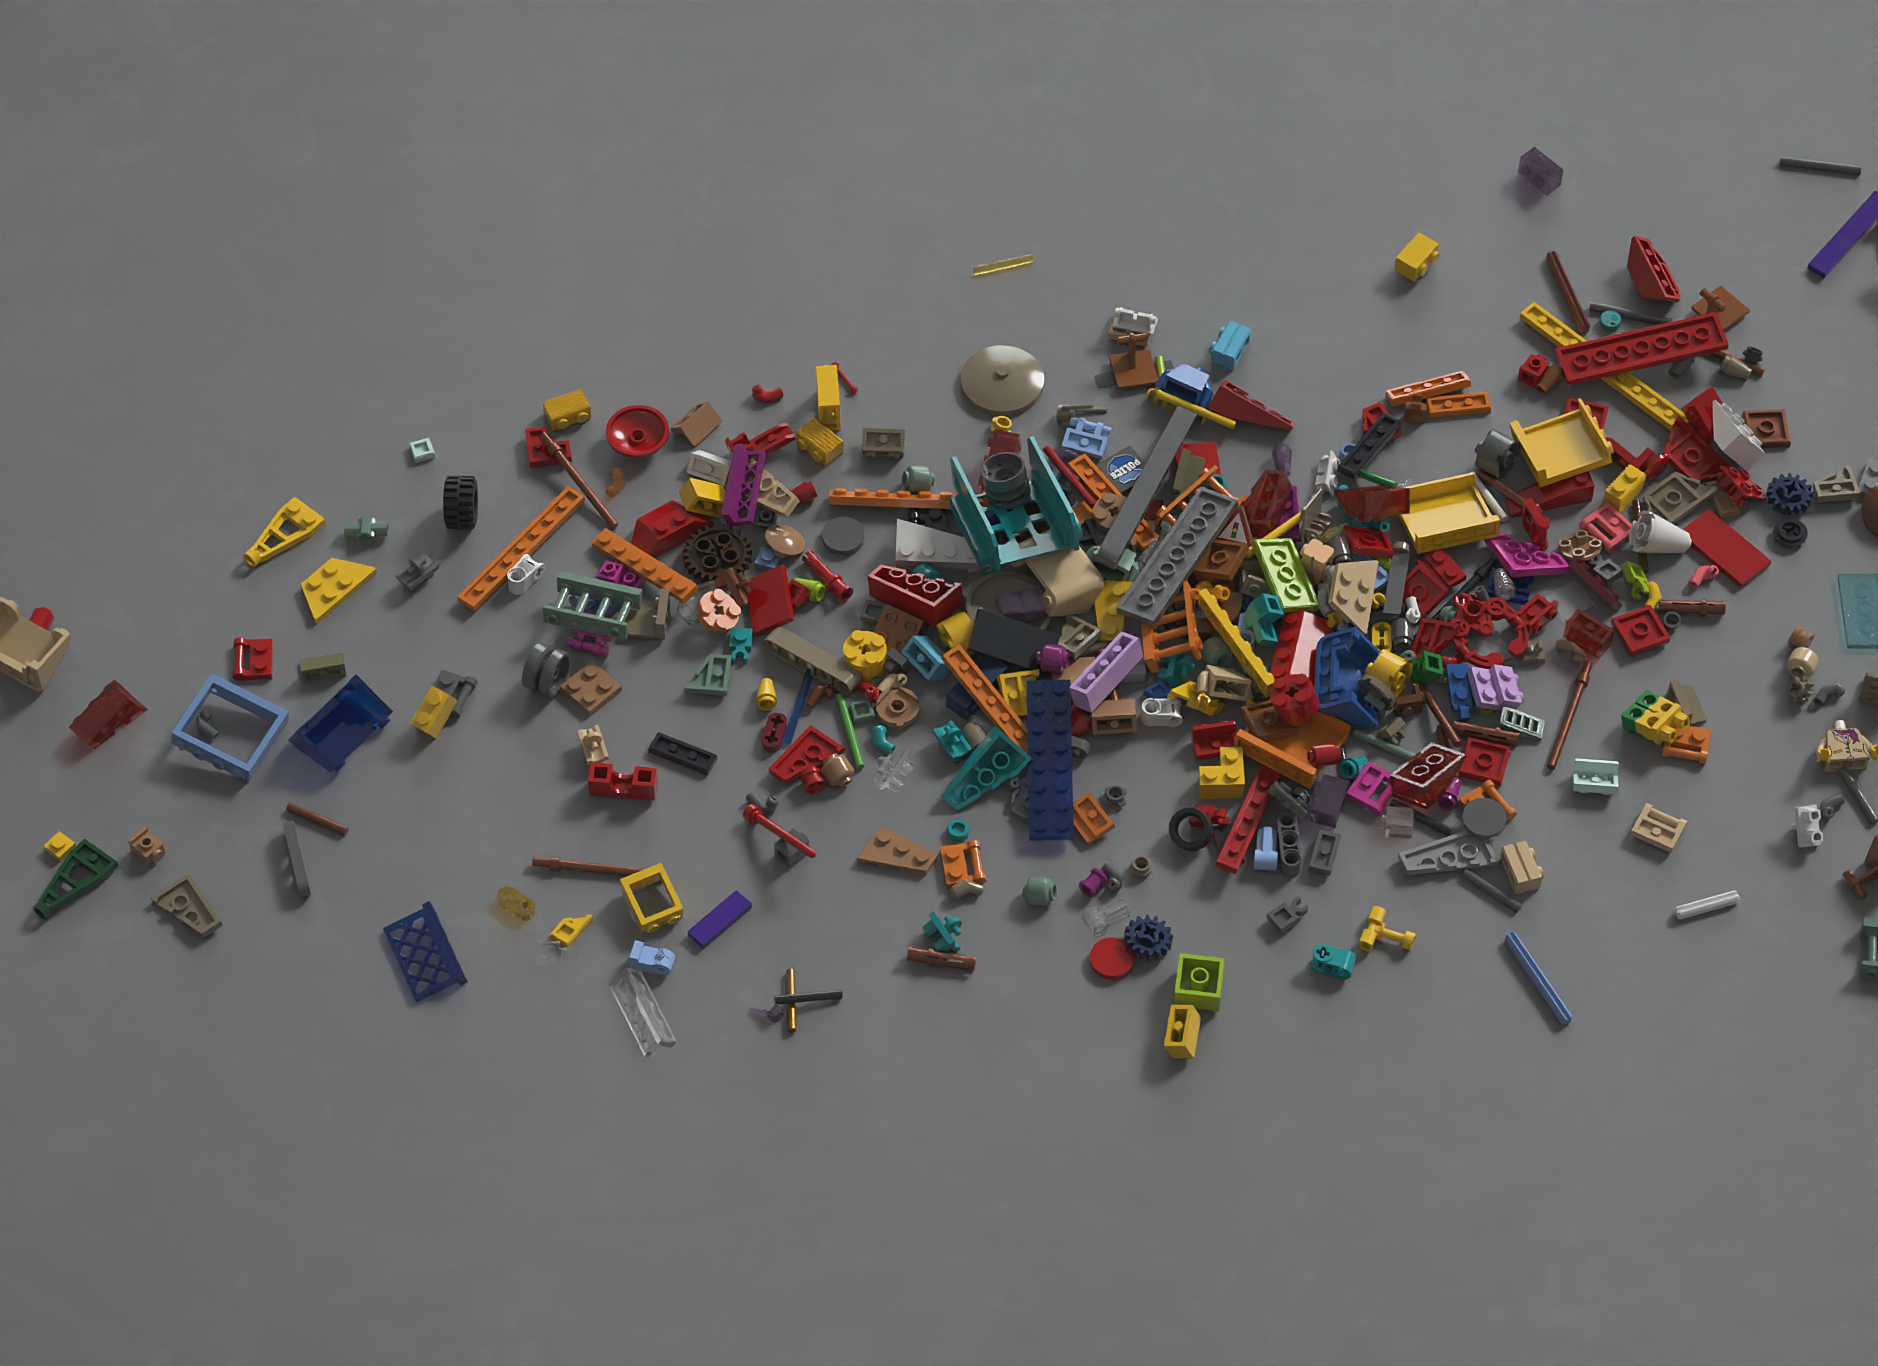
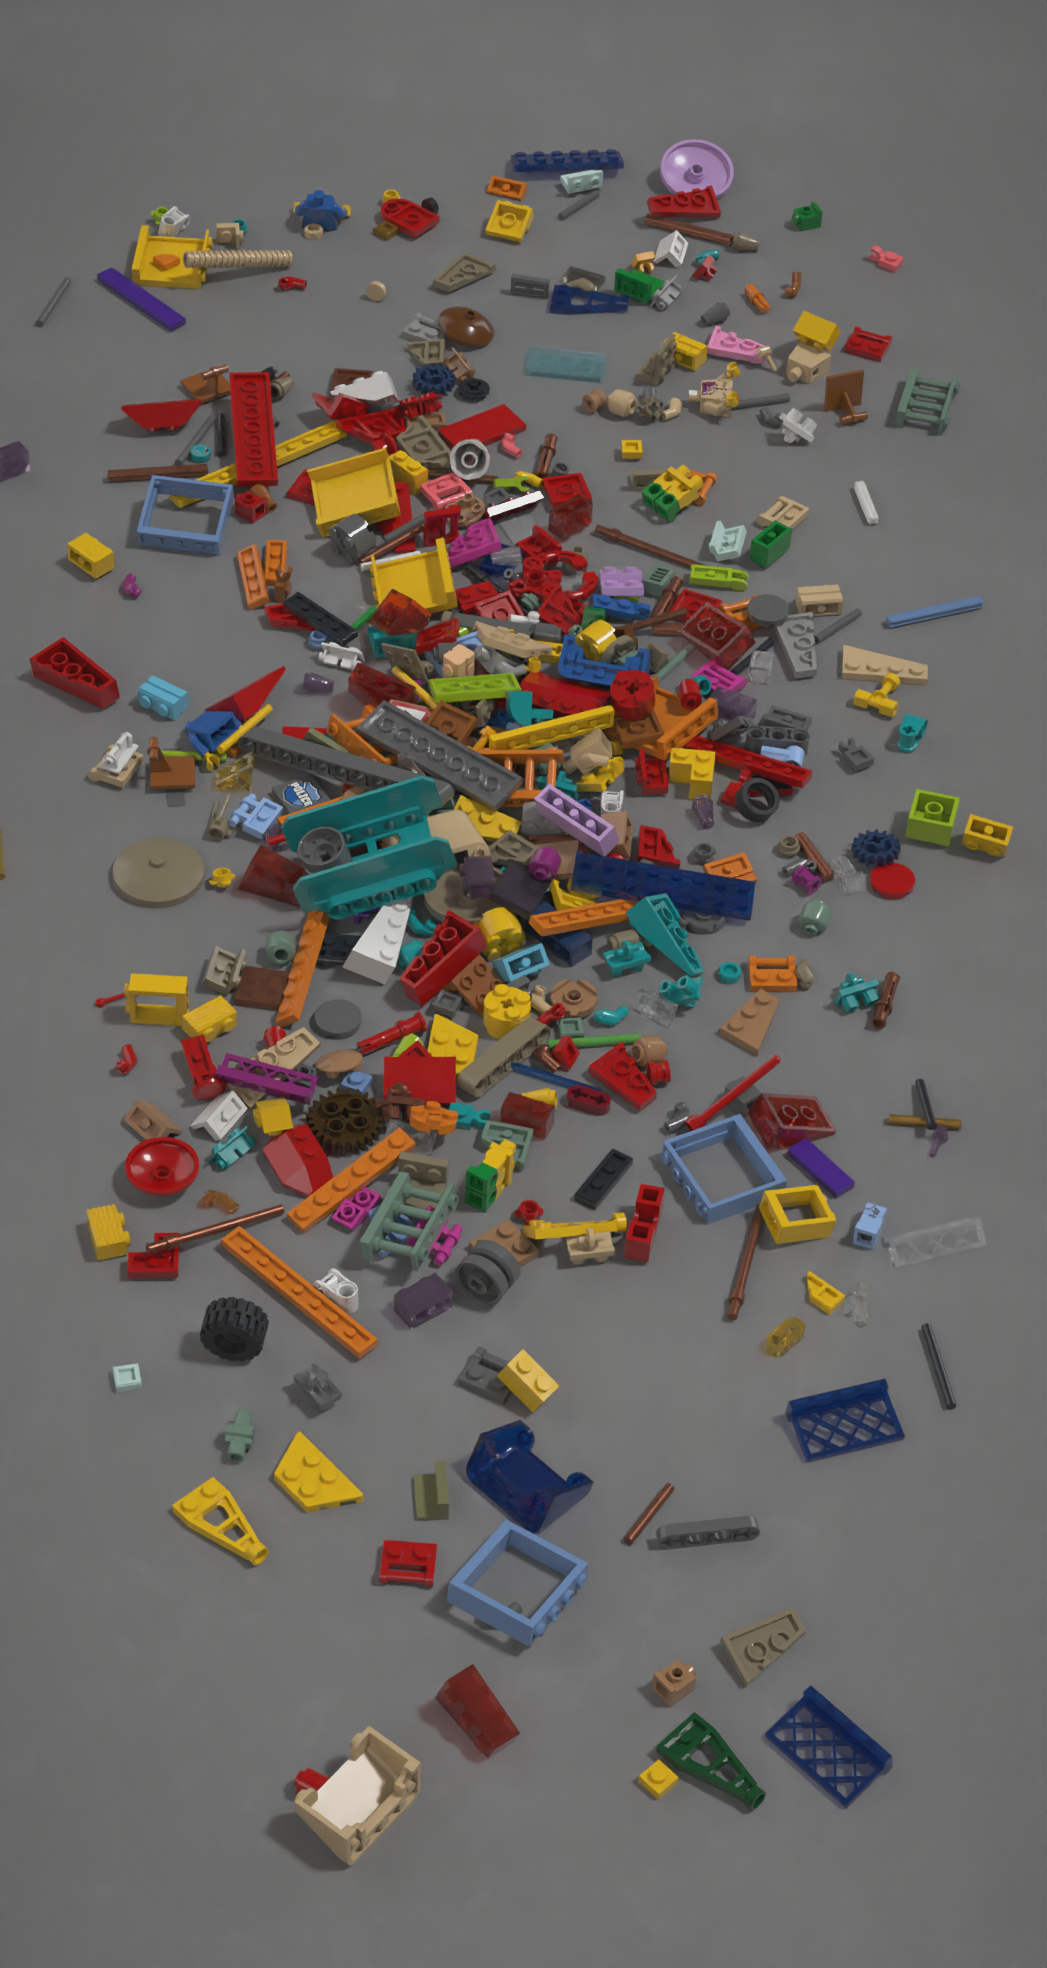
camera: 85 degrees left, 10 degrees down
(104, 968) = (846, 1731): none -> clear blue fence
(497, 1023) = (938, 1366): none -> black bar
(519, 633) = (423, 1301): none -> clear purple brick
(610, 707) = (542, 1230): none -> yellow plate
(633, 695) = (528, 1211): none -> red plate
(661, 662) = (491, 1176): none -> hips
(667, 476) = (224, 1153): none -> teal hinge
(717, 867) = (706, 1136): none -> medium blue window
(741, 684) = (528, 1113): none -> clear red brick
(770, 889) = (789, 1119): none -> clear red slope
(822, 622) = (452, 1040): none -> yellow wing
(824, 707) = (565, 1052): none -> red tile
(871, 473) = (261, 987): none -> copper tile
(913, 787) = (684, 991): none -> teal hips
(970, 579) = (420, 928): none -> teal arm
(1112, 754) = (655, 847): none -> red wing
(1133, 887) = (812, 853): none -> copper axle
(1136, 416) = (237, 771): none -> clear yellow slope
(1173, 790) = (703, 809): none -> cone
(1243, 273) = (74, 673): none -> red wedge
(1389, 296) = (129, 586): none -> magenta arm
(1433, 930) = (873, 666): none -> tan wing
(1489, 289) = (184, 540): none -> medium blue window
(1537, 774) = (718, 577): none -> lime hinge
(1543, 505) = (402, 529): none -> dark grey bar
(1572, 647) = (579, 533): dark tan arm -> none
(1595, 814) = (770, 544): none -> green brick
(1729, 681) = (631, 449): none -> yellow plate
(1814, 715) = (673, 411): none -> tan arm
(1824, 517) = (458, 364): none -> medium nougat hinge

